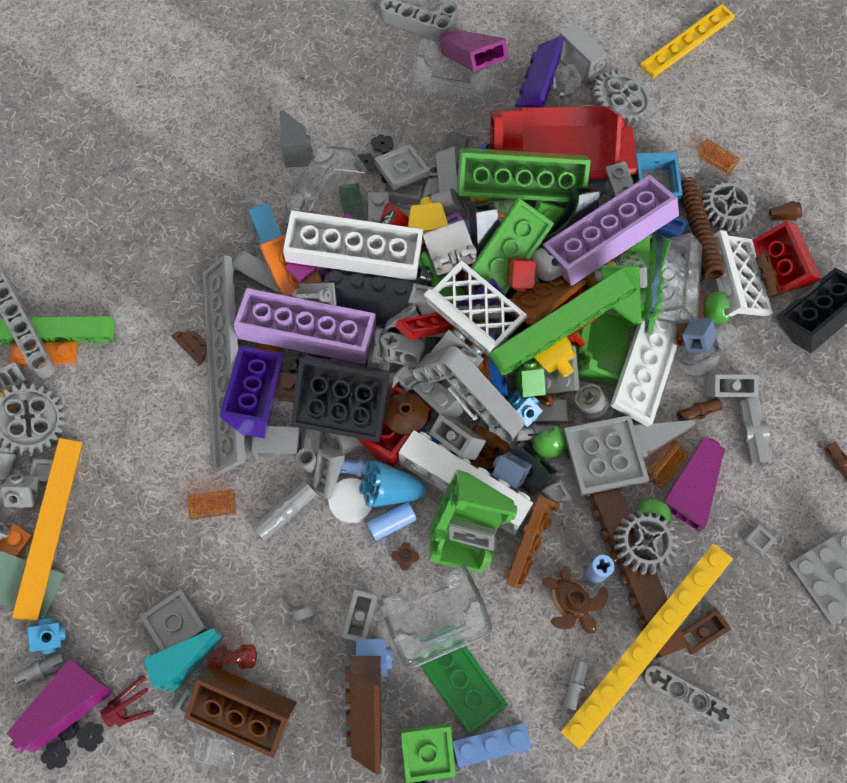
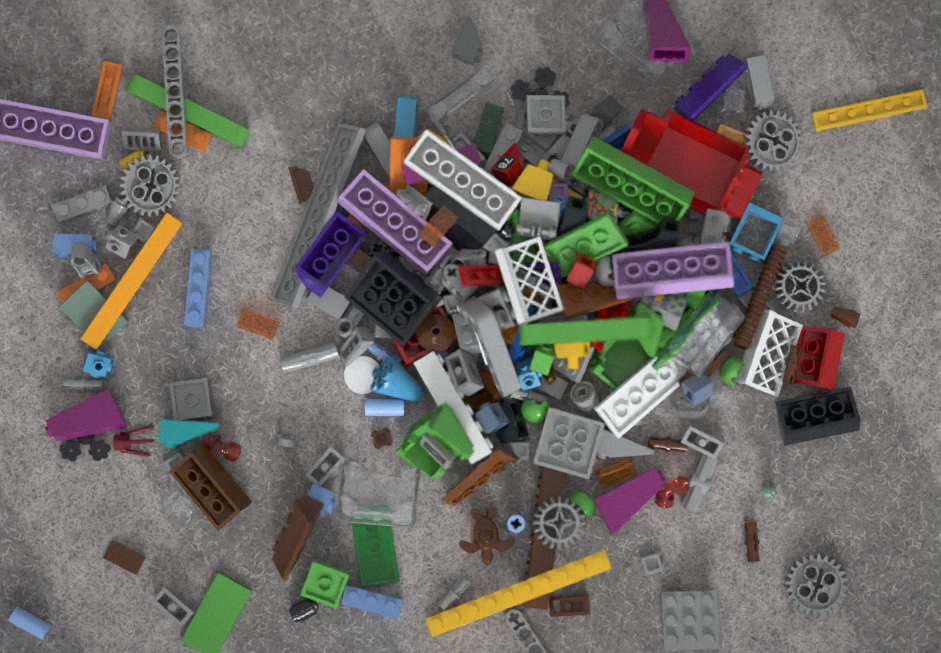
camera: 30 degrees right, 15 degrees up
(128, 499) = (198, 288): none -> medium blue brick
(352, 302) = (438, 226): none -> clear orange plate
(737, 444) = (665, 497): none -> clear red arm
(826, 403) = (769, 490): none -> sand green plate

